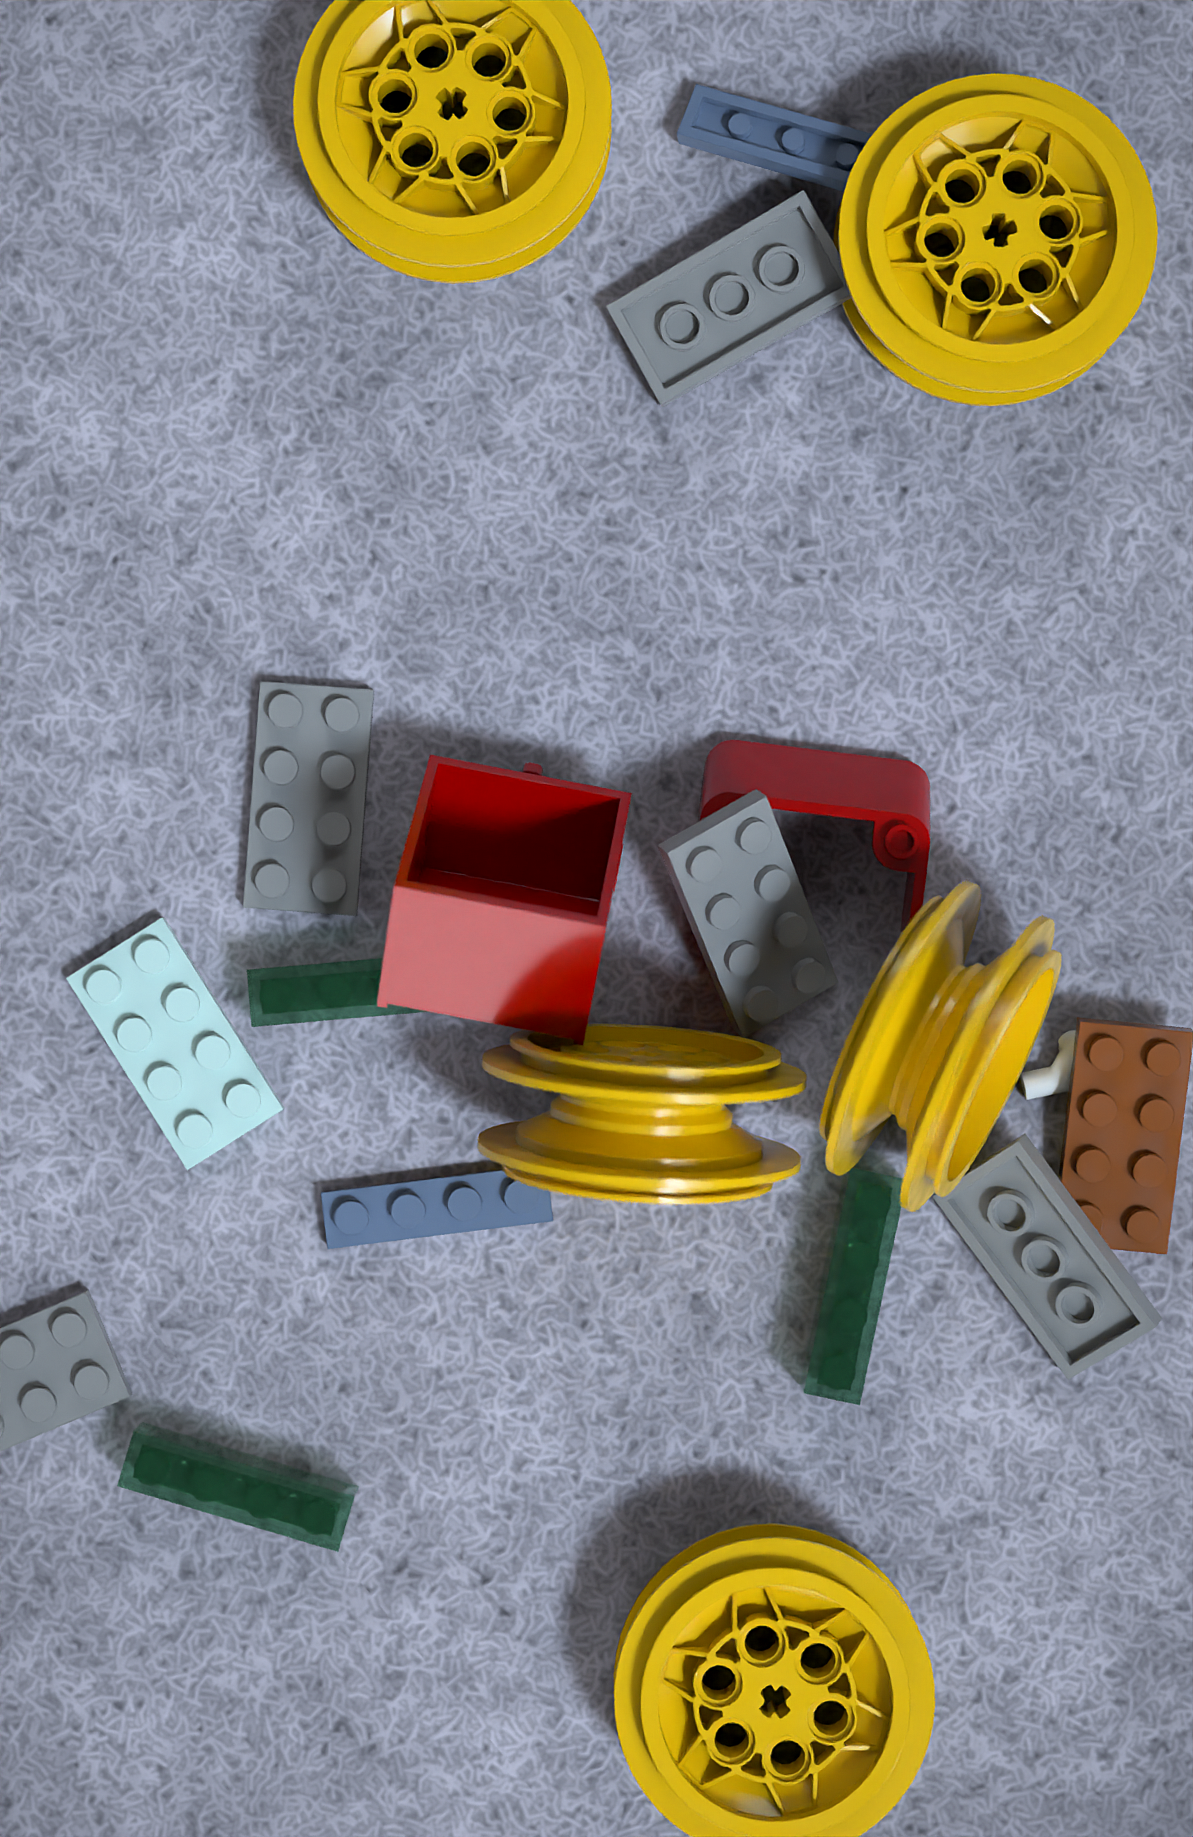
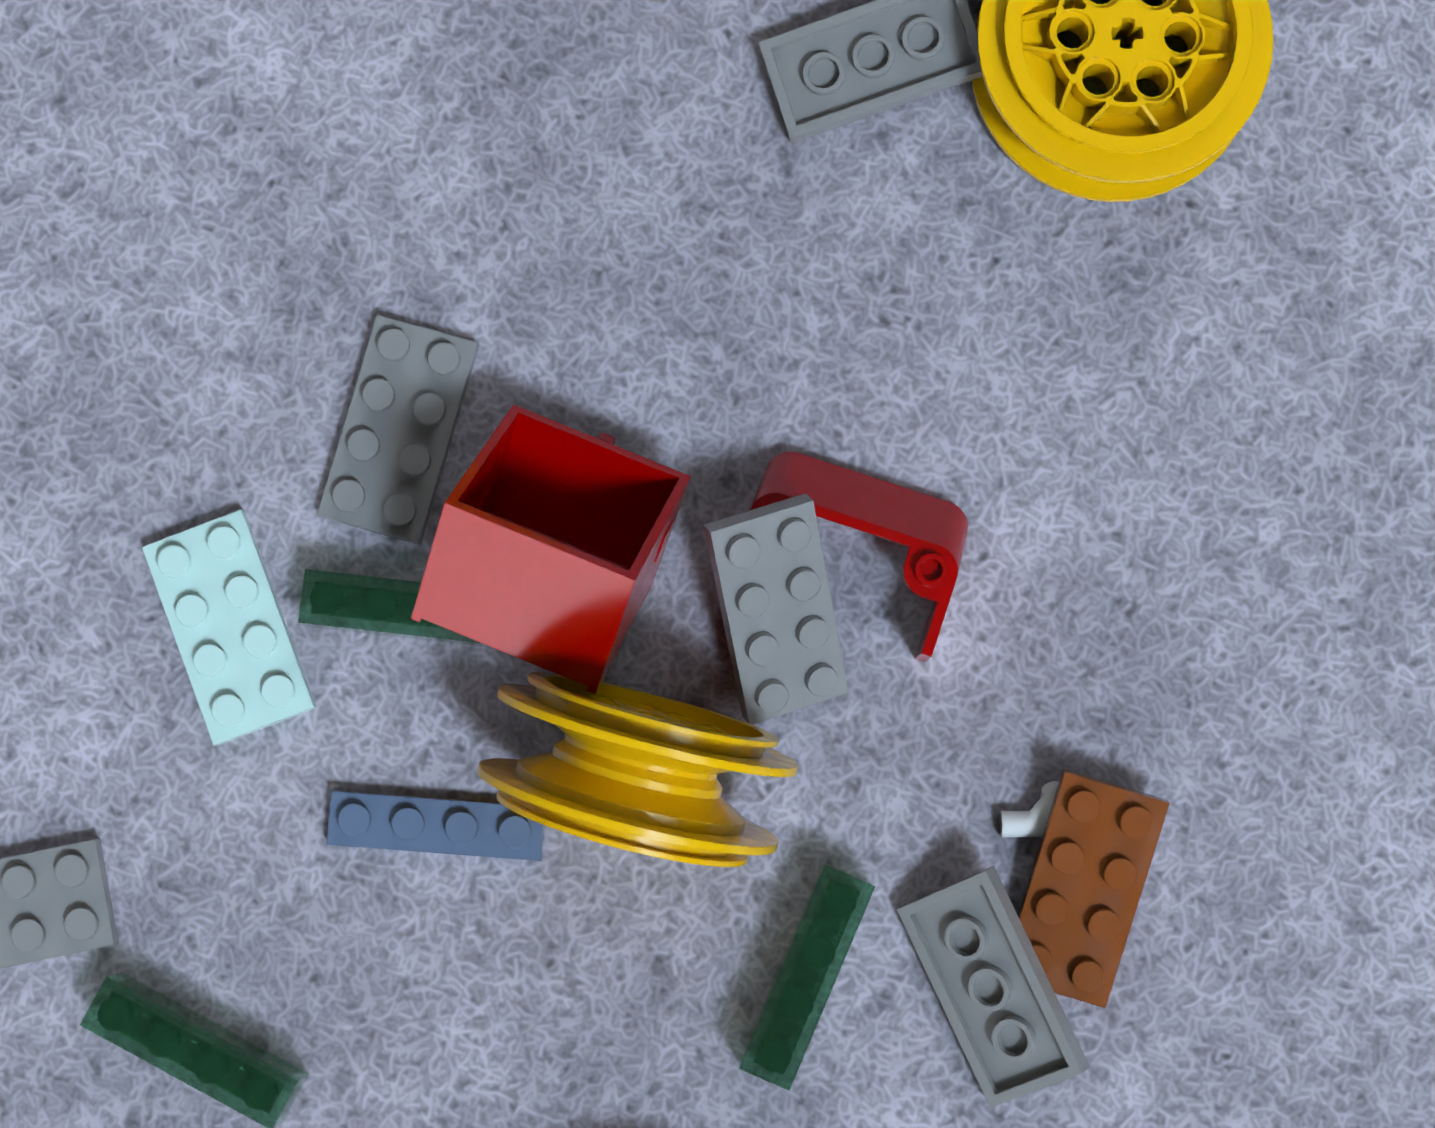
camera: 15 degrees right, 5 degrees down
(939, 1045) = (927, 762): yellow wheel -> none

